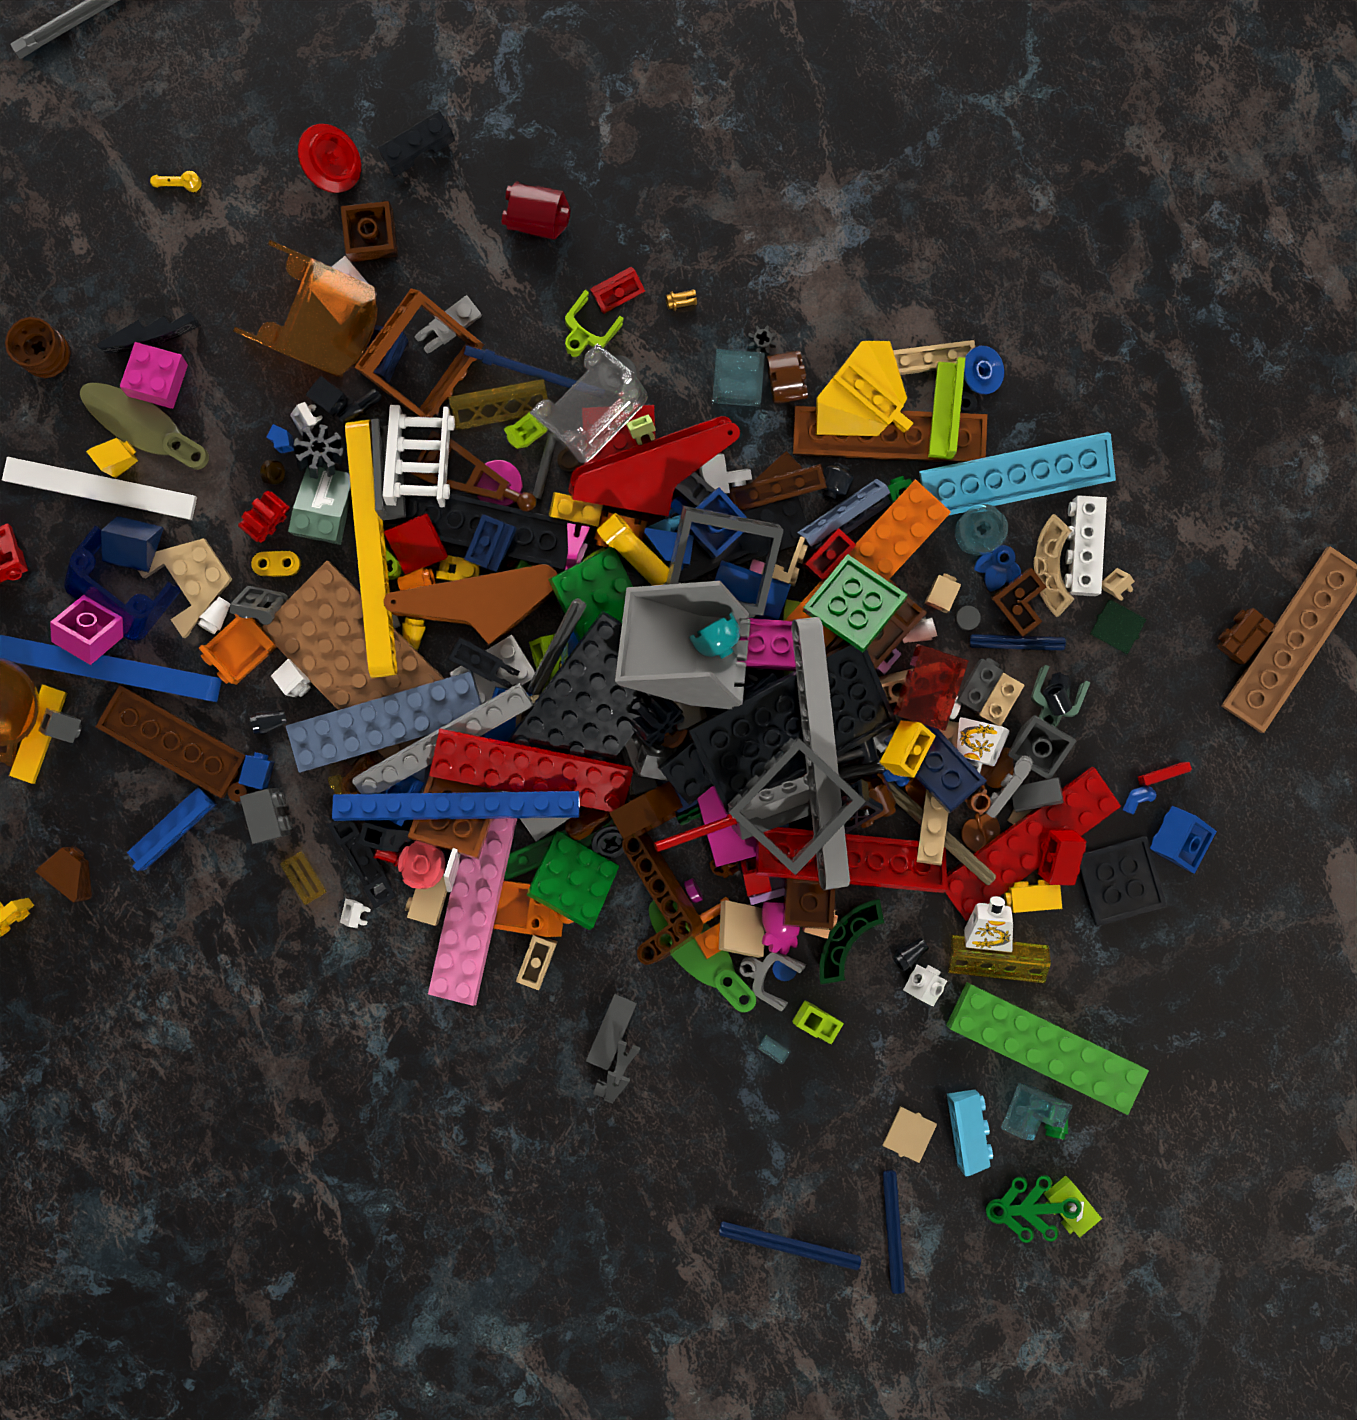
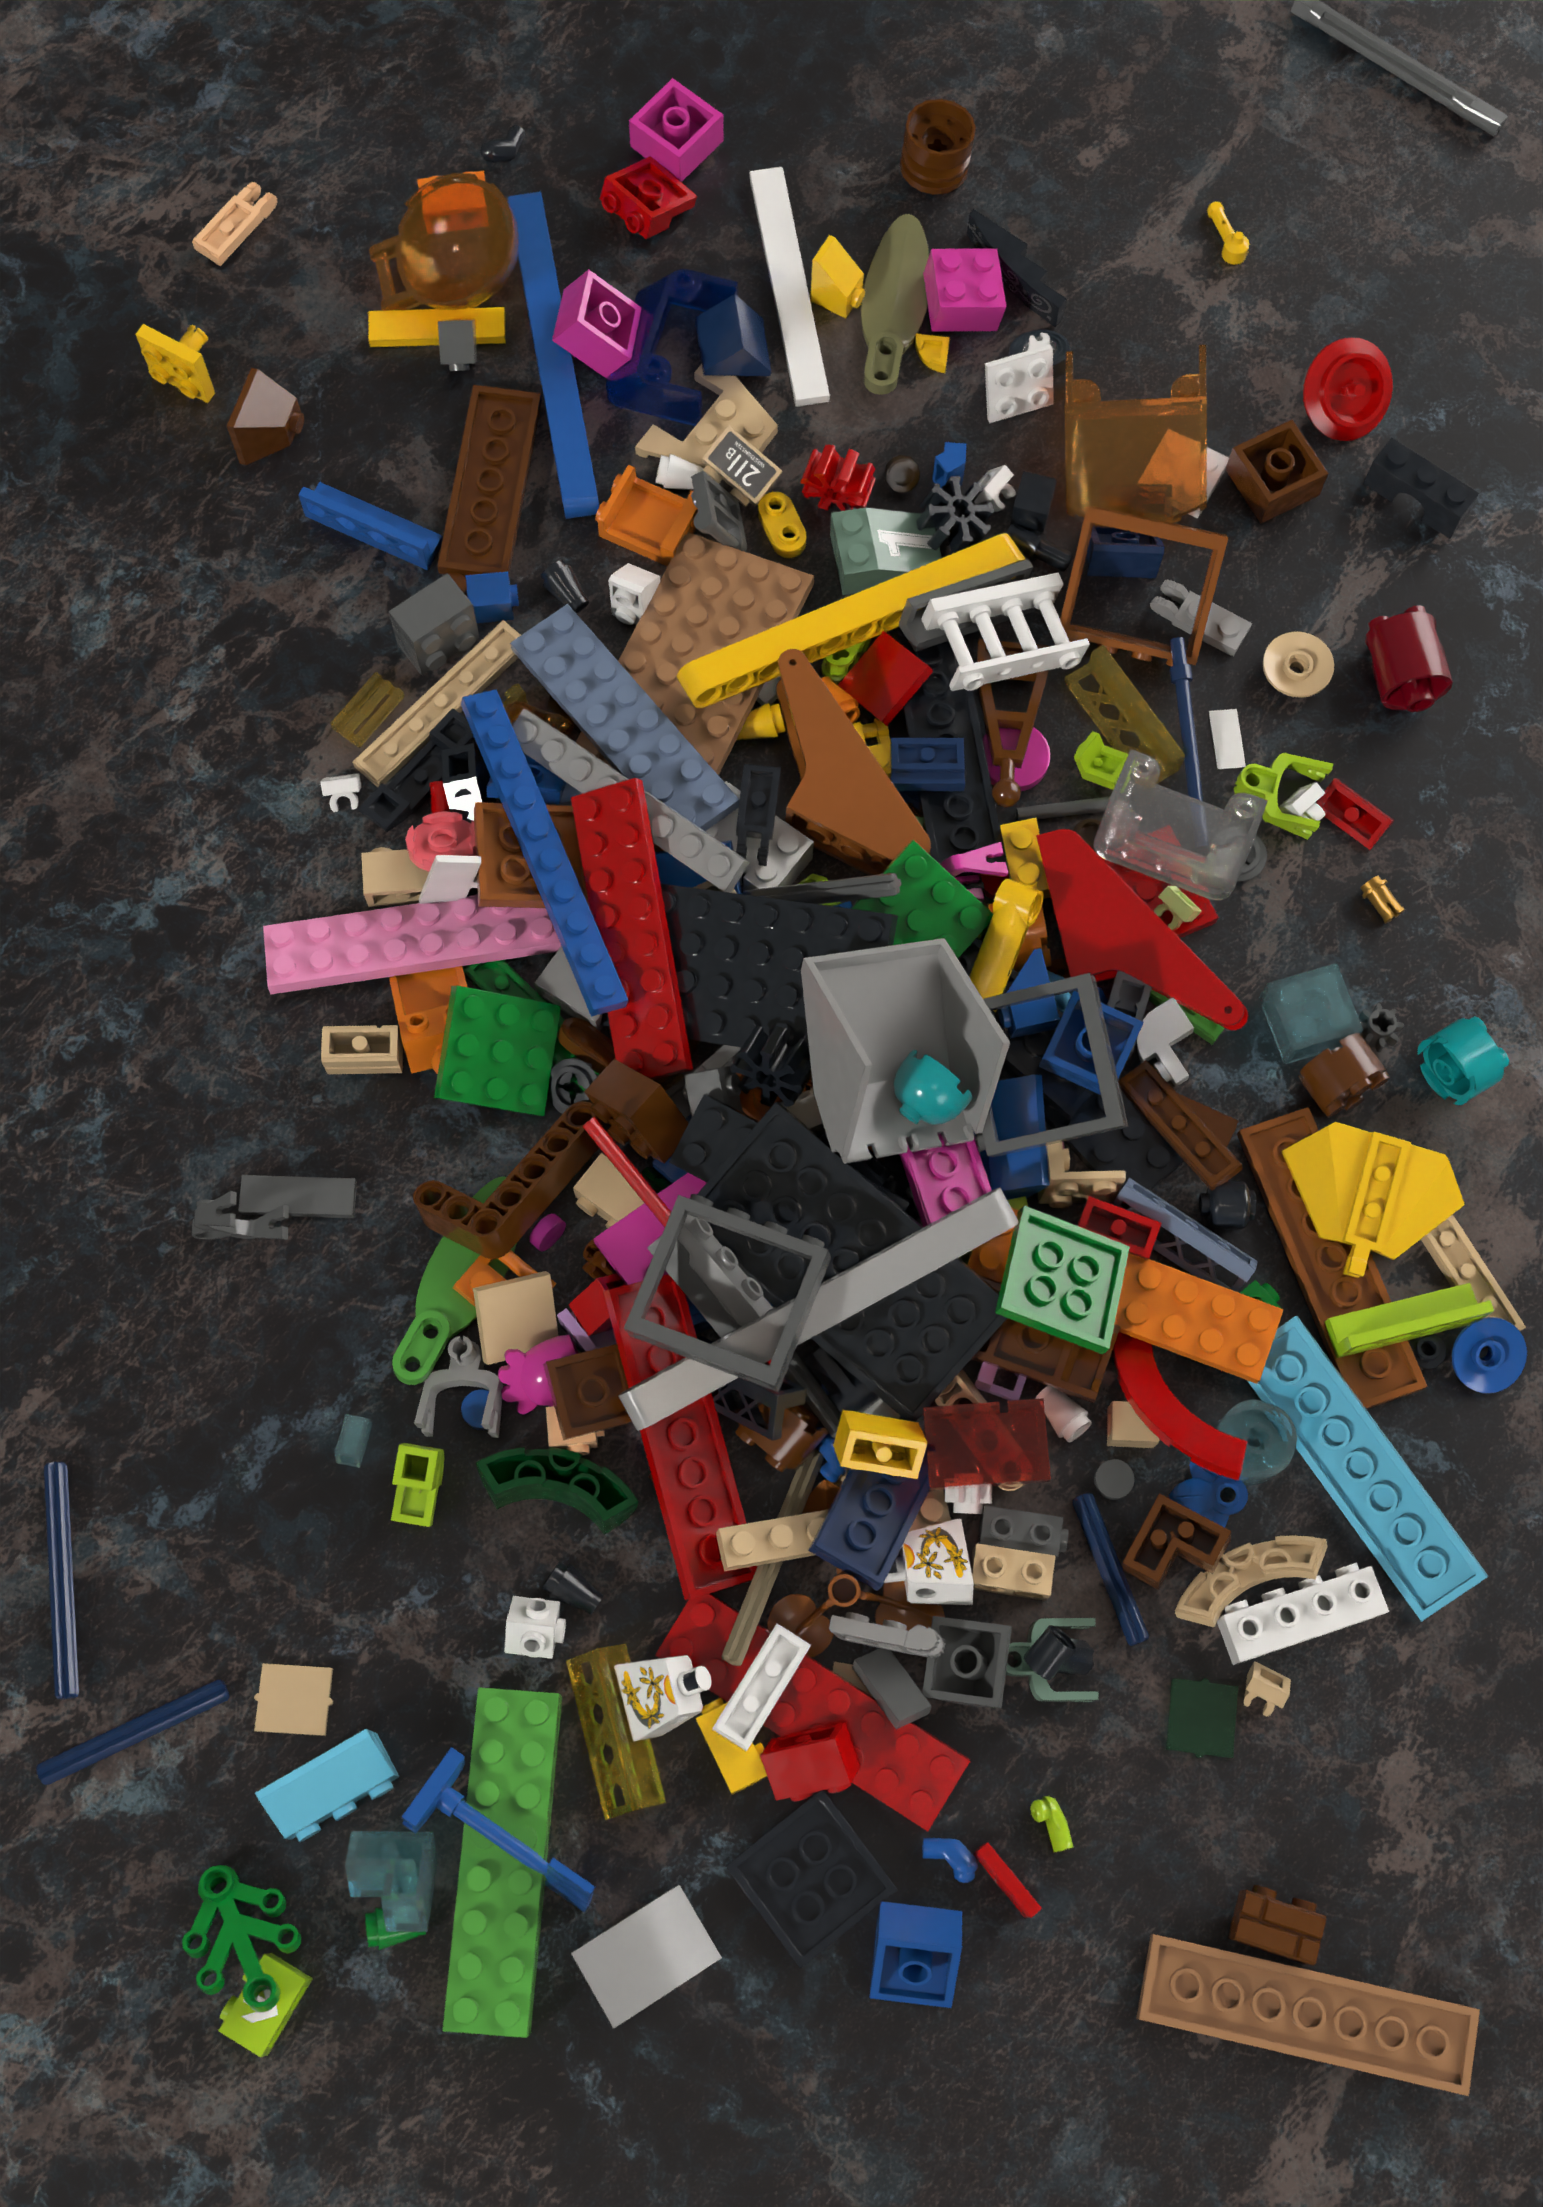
camera: 70 degrees right, 15 degrees down
(187, 413) = (932, 351): none -> yellow tile
(226, 351) = (1025, 376): none -> white plate
(229, 576) = (740, 467): none -> brick
(316, 829) = (412, 729): none -> tan tile
(507, 267) = (1303, 652): none -> tan dish
(536, 345) = (1227, 739): none -> white sticker
(601, 319) = (1303, 802): none -> white tile
(684, 852) = (605, 1192): none -> tan brick
(804, 301) = (1462, 1060): none -> teal brick
(951, 574) = (1167, 1416): none -> red tile
(1005, 1071) = (440, 1795): none -> blue piece
(1011, 869) = (761, 1687): none -> white tile
(1127, 988) = (646, 1956): none -> light grey slope
(1137, 734) = (1050, 1812): none -> lime arm

